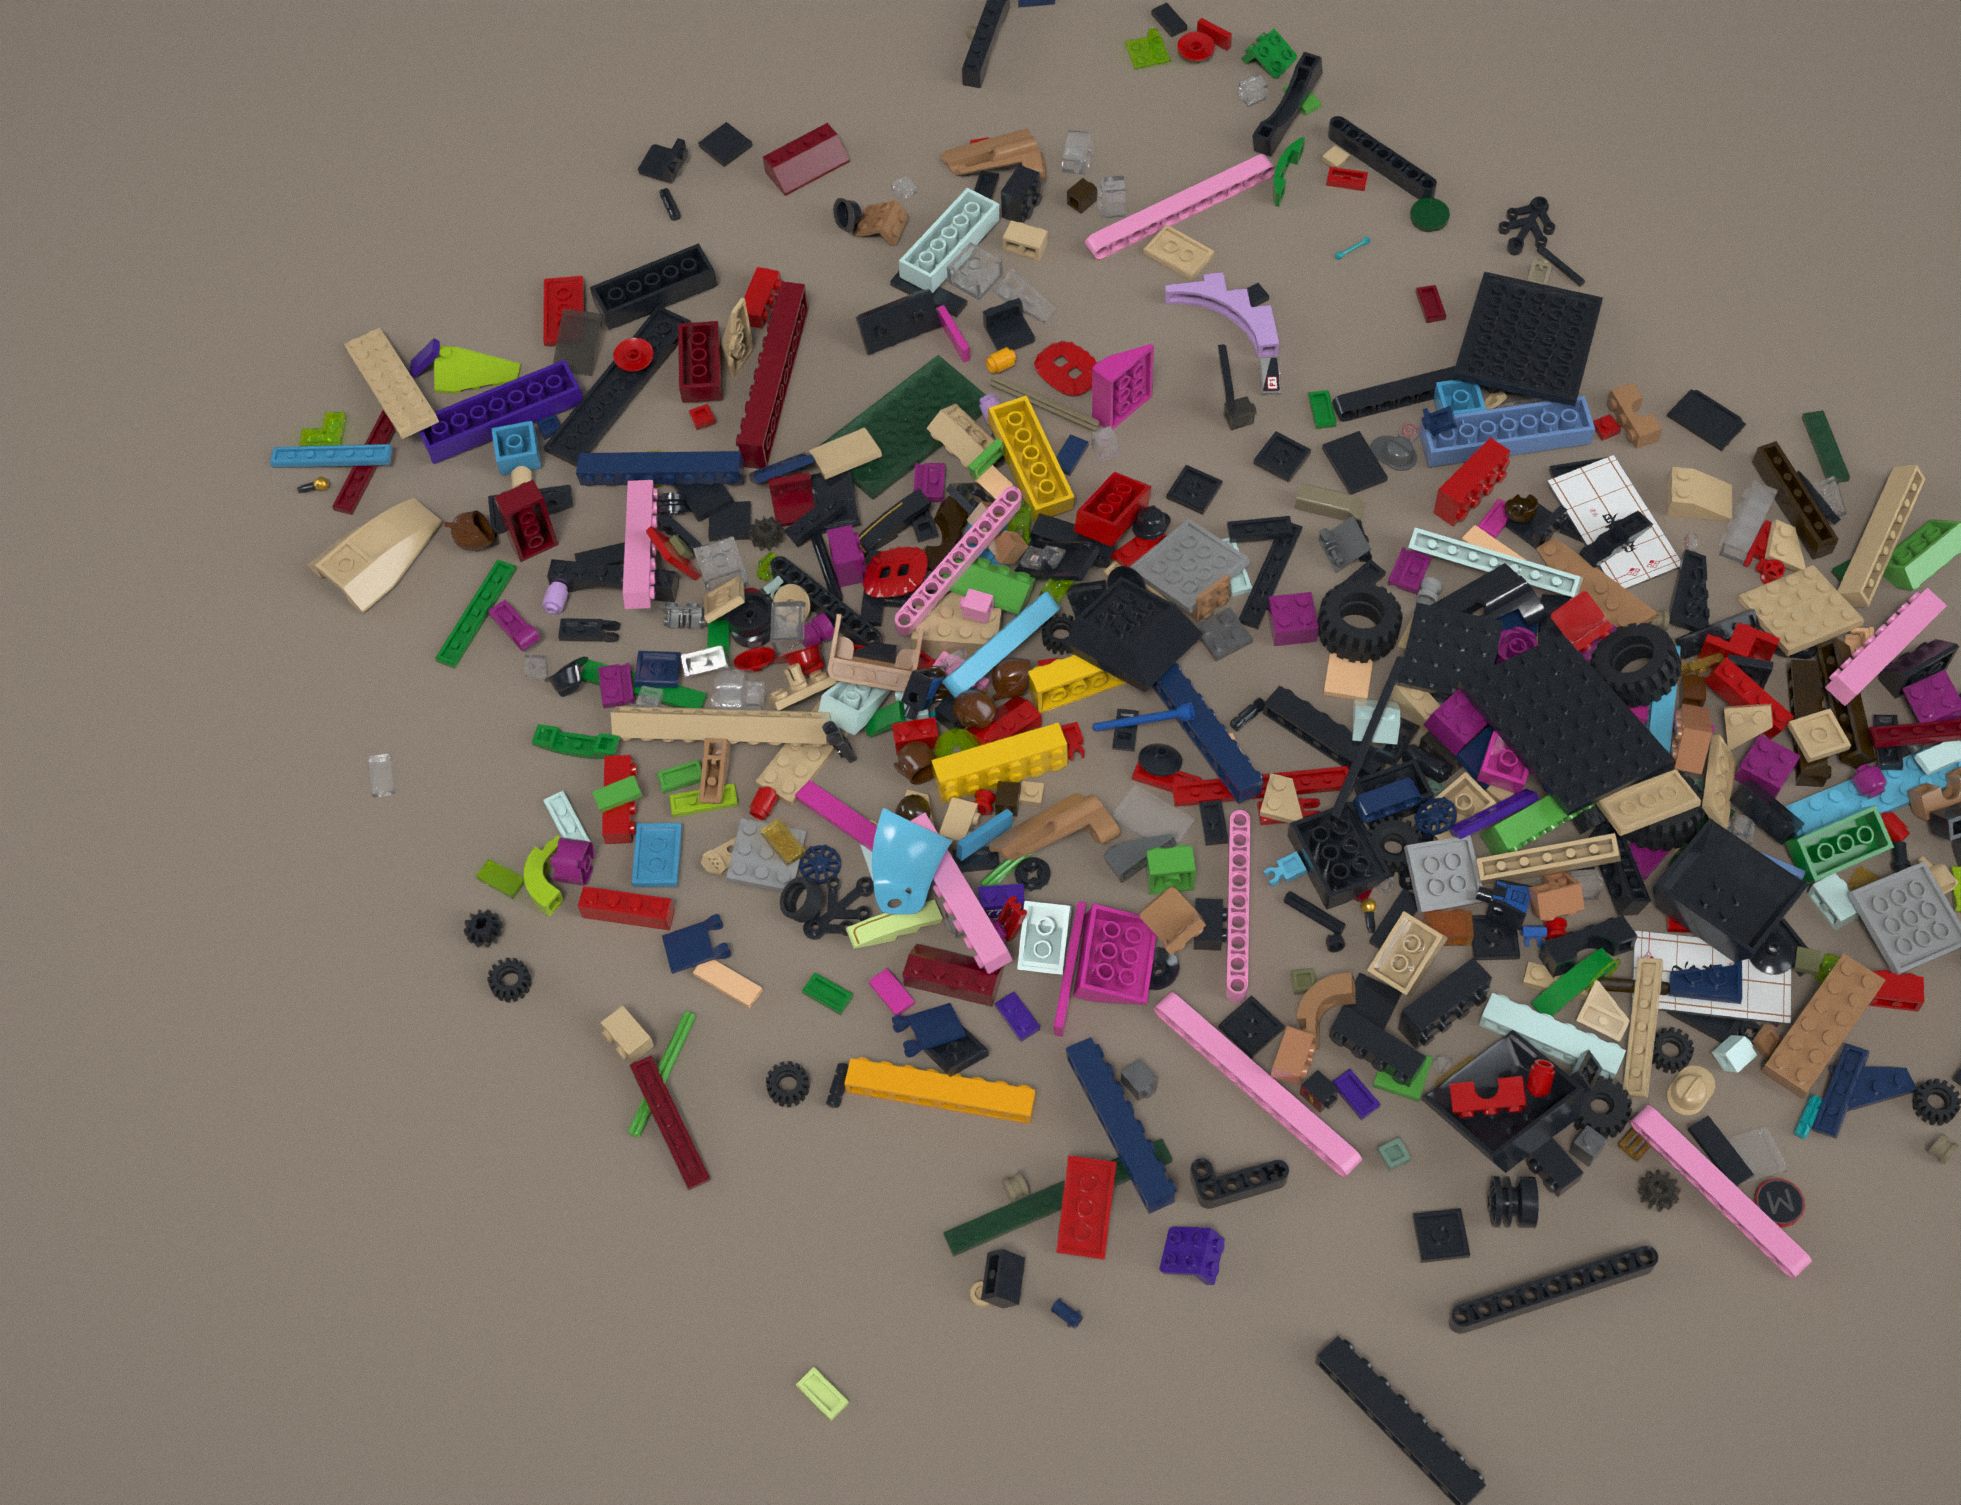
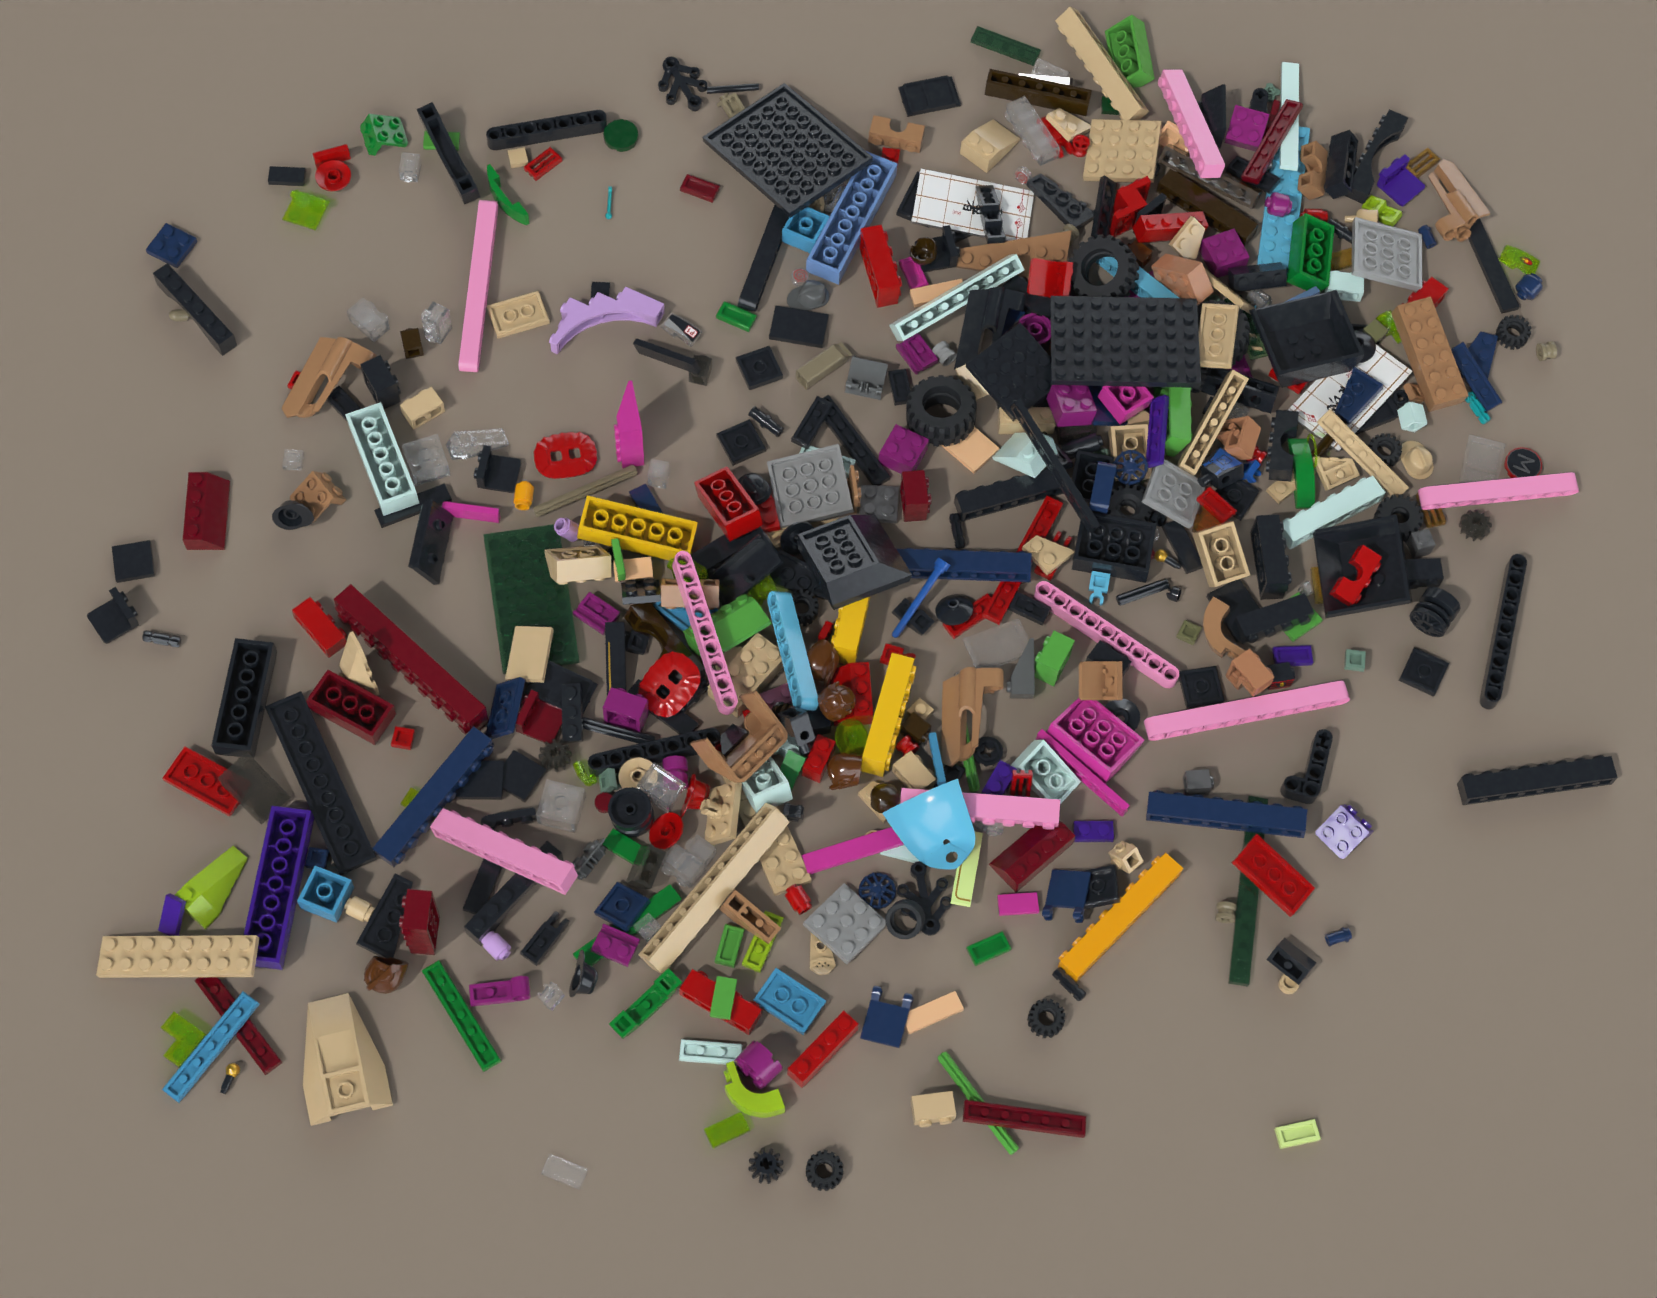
camera: 65 degrees left, 5 degrees up
(633, 348) = (300, 746): red dish -> none
(671, 555) = (531, 831): red tile -> none
(672, 503) = (475, 806): black wheel -> none
(680, 547) = (528, 823): olive tile -> none
(724, 599) = (603, 819): tan tile -> none
(783, 842) = (849, 903): clear yellow plate -> none
(954, 658) = (776, 690): clear tile -> none
(977, 606) = (750, 645): bright pink brick -> none
(1006, 1057) = (1125, 856): none -> tan brick
(1035, 556) = (733, 576): clear slope -> none
(1231, 494) = (766, 421): none -> black pin
(1248, 652) = (915, 495): none -> dark red brick
(1439, 420) = (821, 249): dark blue bracket -> none
(1460, 919) = (1216, 505): none -> red tile
(1540, 1078) = (1367, 535): red brick -> none
(1586, 1071) = (1376, 505): black plate -> none
(1701, 665) = (1128, 232): clear yellow plate -> none
(1720, 1151) = (1471, 471): black tile -> none
(1819, 735) = (1228, 207): tan plate -> none

